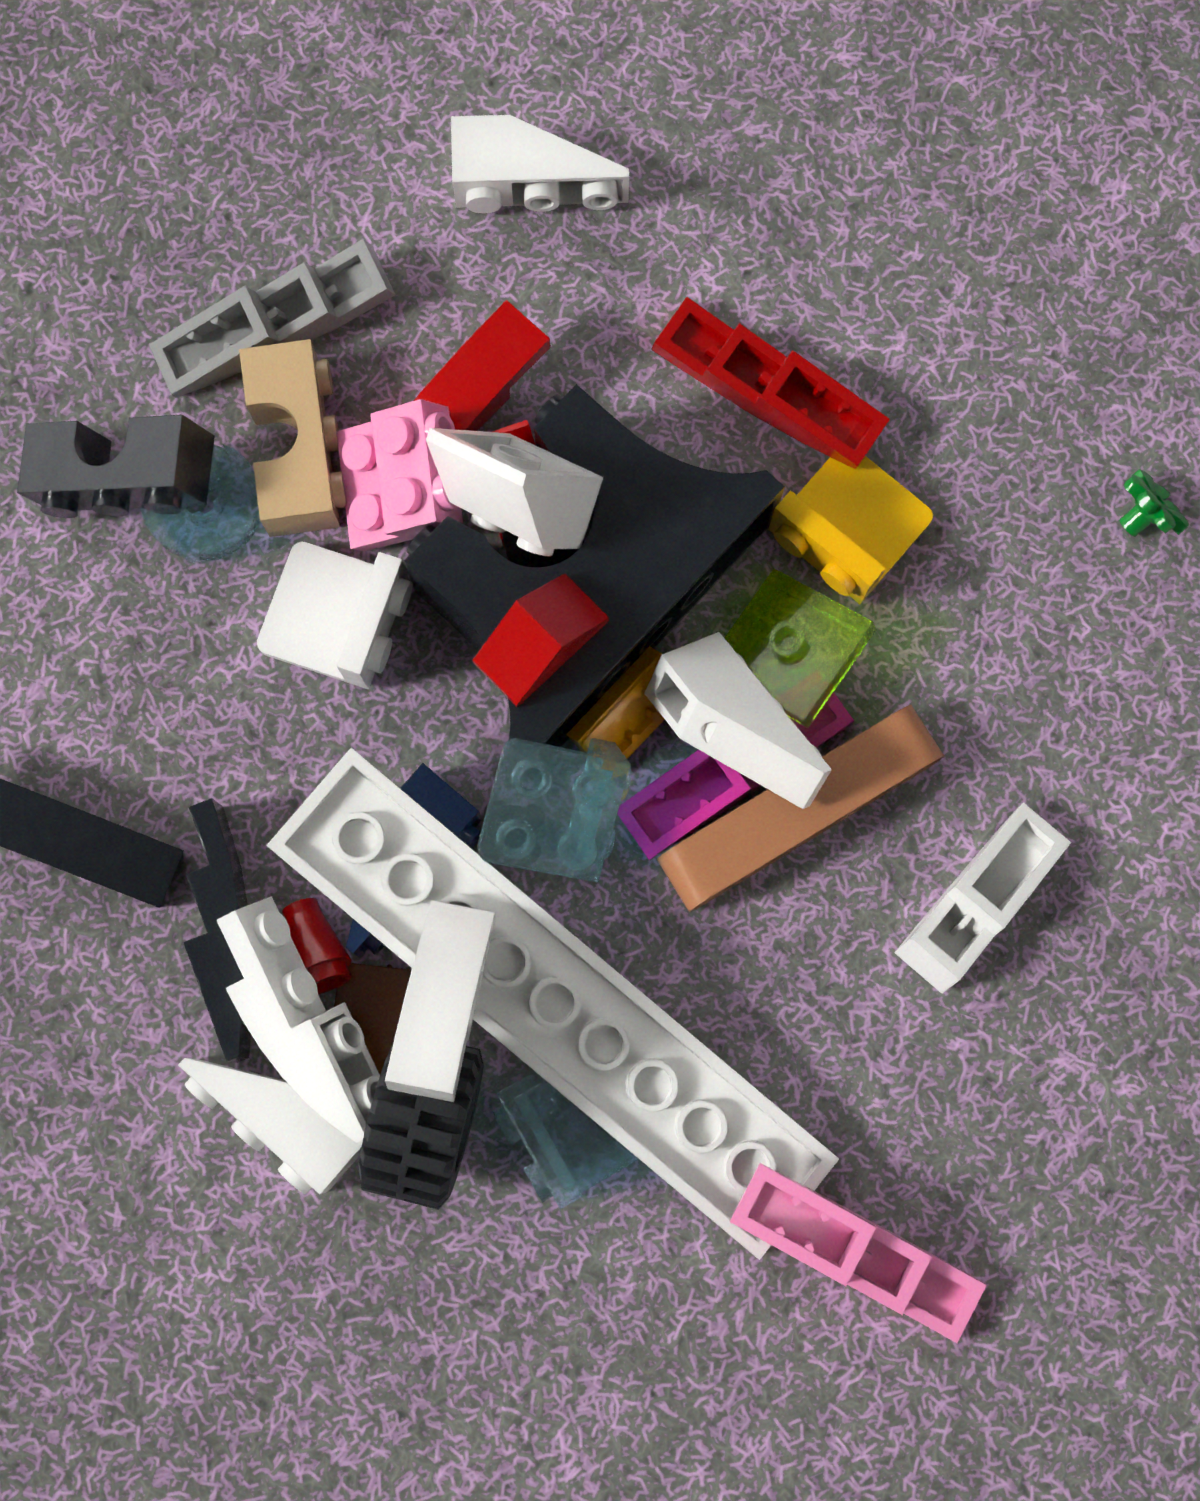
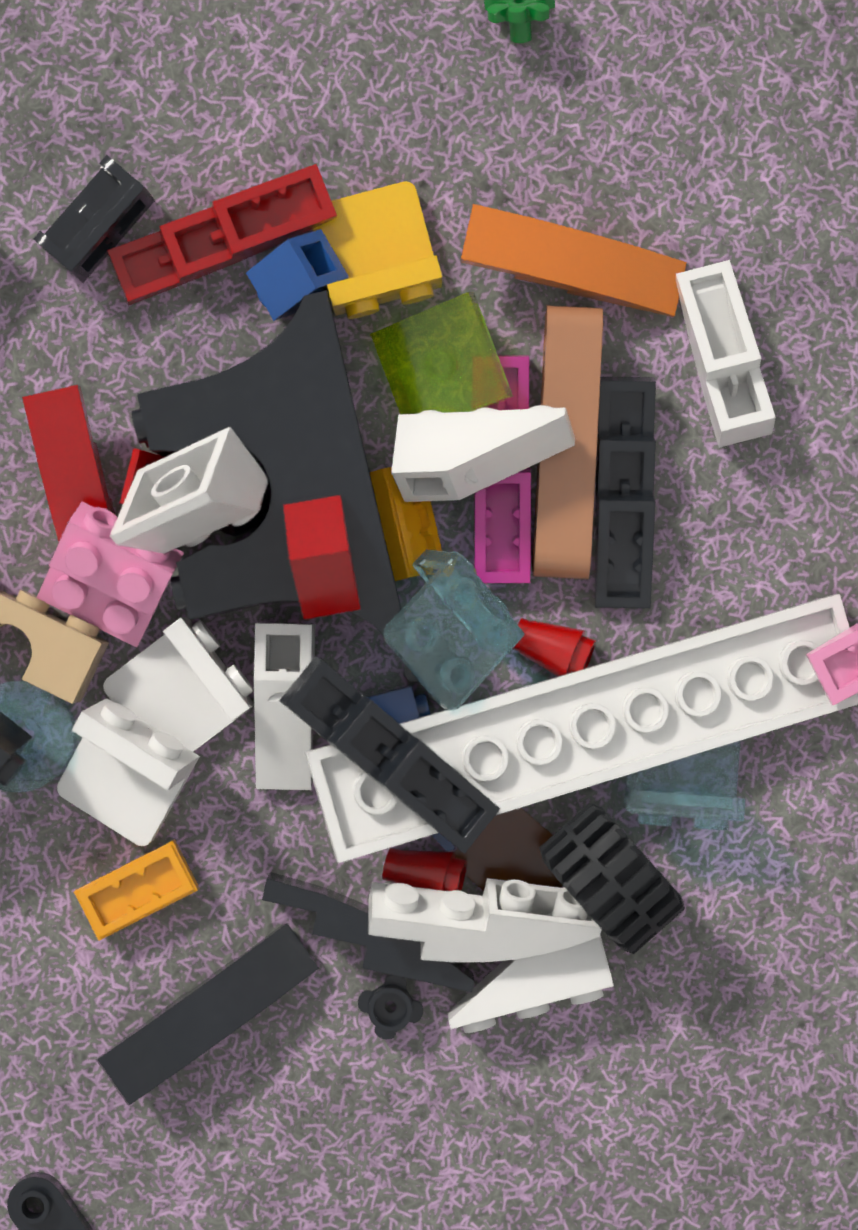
camera: 60 degrees left, 10 degrees up
(127, 694) = (136, 890): none -> light orange plate
(148, 1001) = (386, 1021): none -> black plate
(230, 609) = (125, 771): none -> white bracket
(389, 706) = (280, 735): none -> white slope
(399, 824) = (389, 754): none -> black slope
(440, 1002) = (542, 810): white slope -> none
(605, 922) = (555, 647): none -> red cone
(705, 273) = (96, 220): none -> black hinge
(788, 455) = (295, 270): none -> blue brick
(791, 892) = (625, 492): none -> black slope
(967, 700) = (572, 260): none -> orange slope

